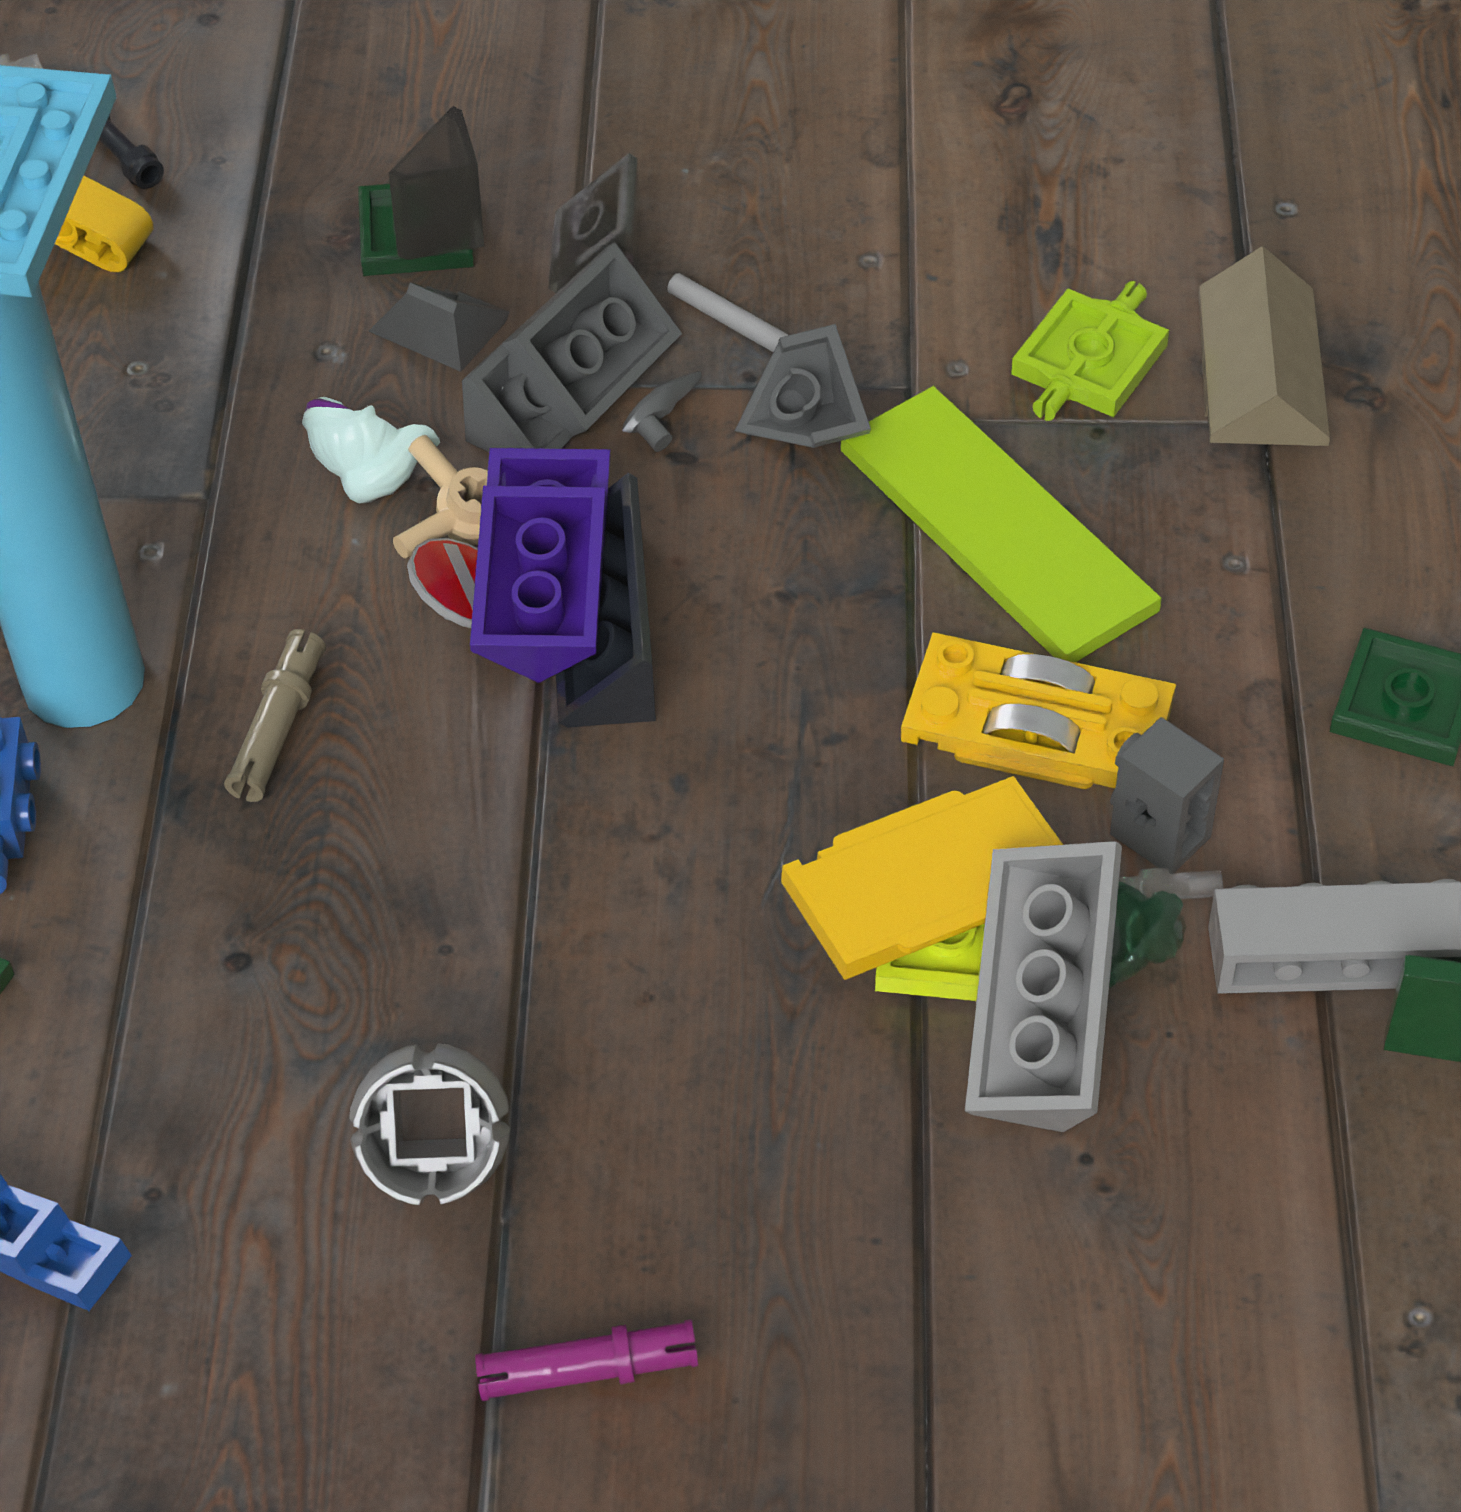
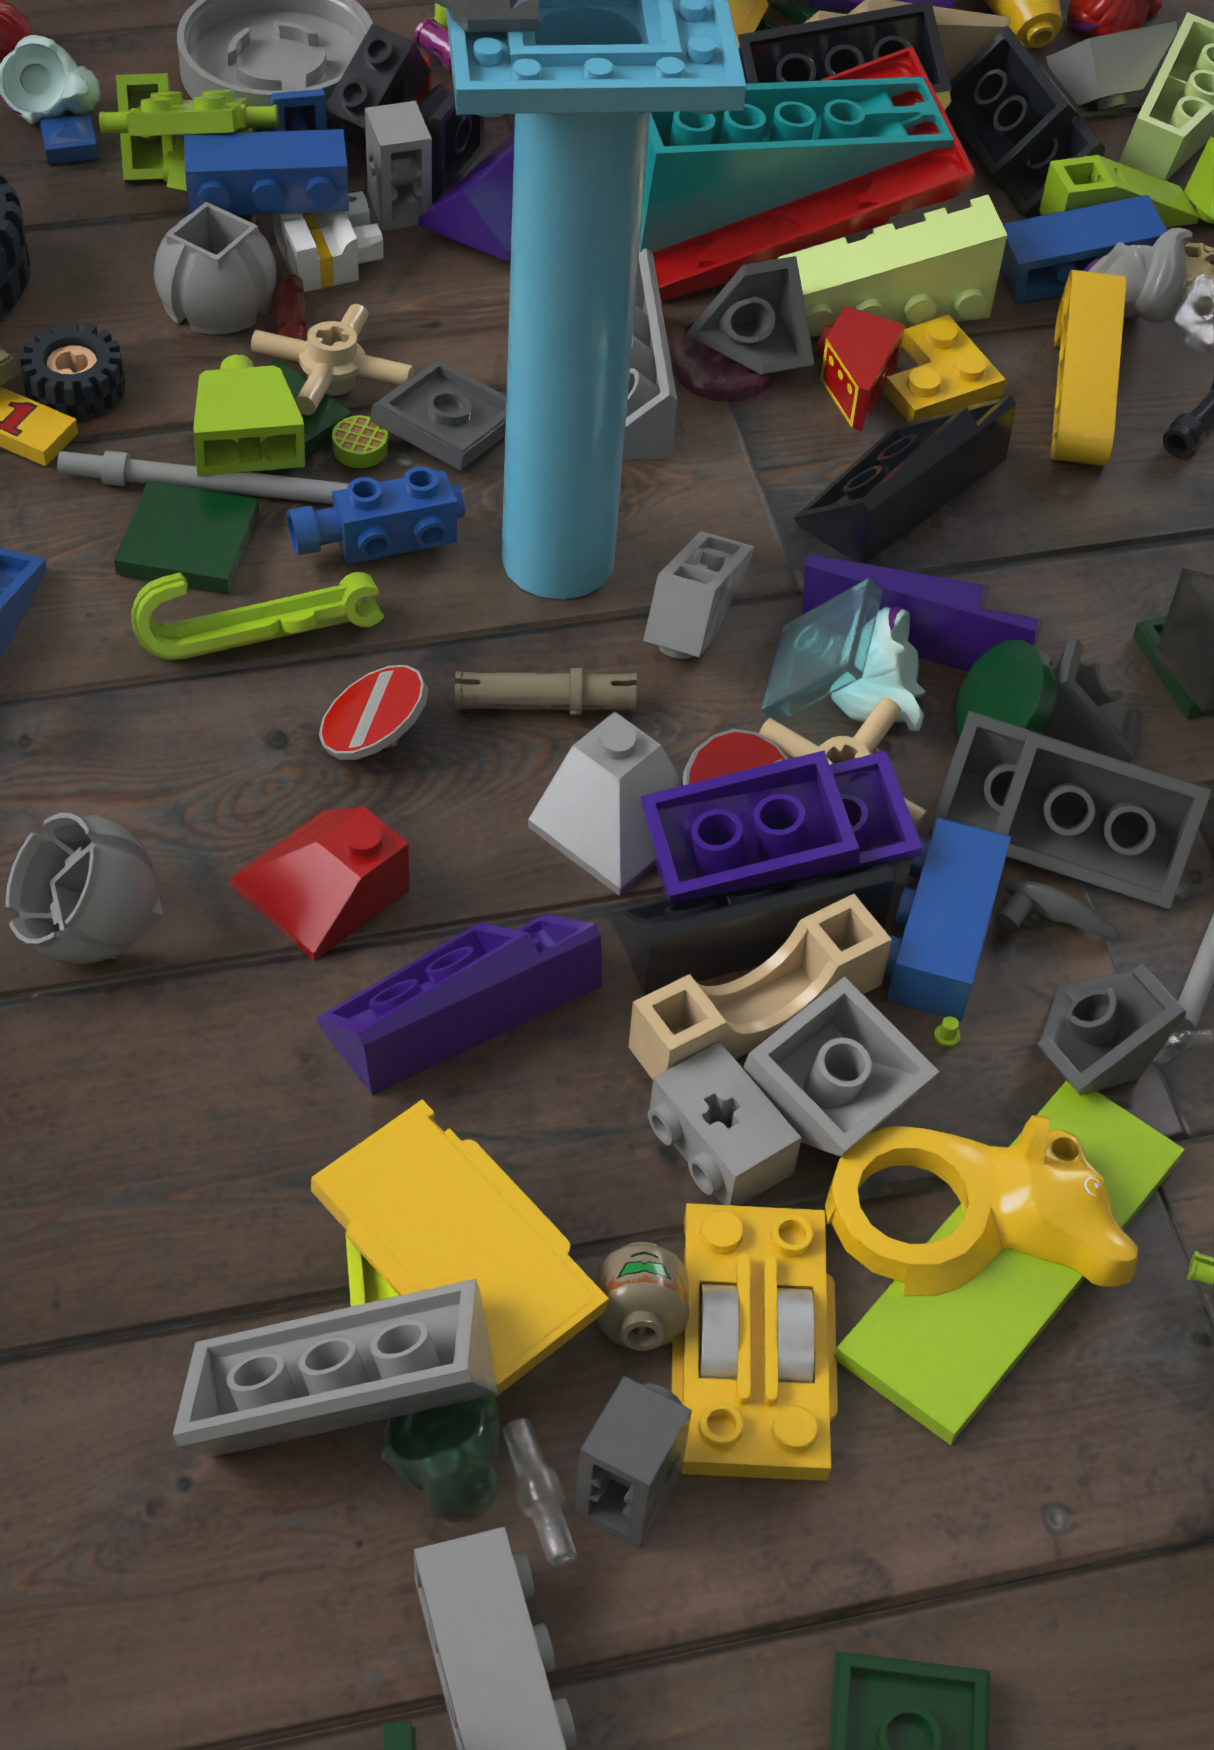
camera: 70 degrees right, 0 degrees up
(70, 1002) = (252, 622): none -> lime piece
(115, 375) = (909, 478): none -> black slope
(202, 563) = (695, 594): none -> light grey slope
(258, 855) = (373, 712): none -> red piece
(263, 426) = (945, 614): none -> dark purple slope
(327, 479) = (822, 651): none -> clear light blue plate
(427, 360) = (1010, 685): none -> dark green tile
(439, 690) = (595, 802): none -> light grey slope
(445, 935) = (327, 878): none -> red slope
(625, 848) = (463, 996): none -> dark purple slope
(680, 479) = (945, 918): none -> blue brick
(722, 656) = (746, 1011): none -> tan arch
(764, 514) = (947, 1033): none -> lime piece
(811, 583) = (838, 1069): none -> light grey slope
(833, 679) = (723, 1126): none -> light grey brick
(959, 495) = (1016, 1197): none -> yellow animal
(989, 757) = (645, 1295): none -> dark tan head

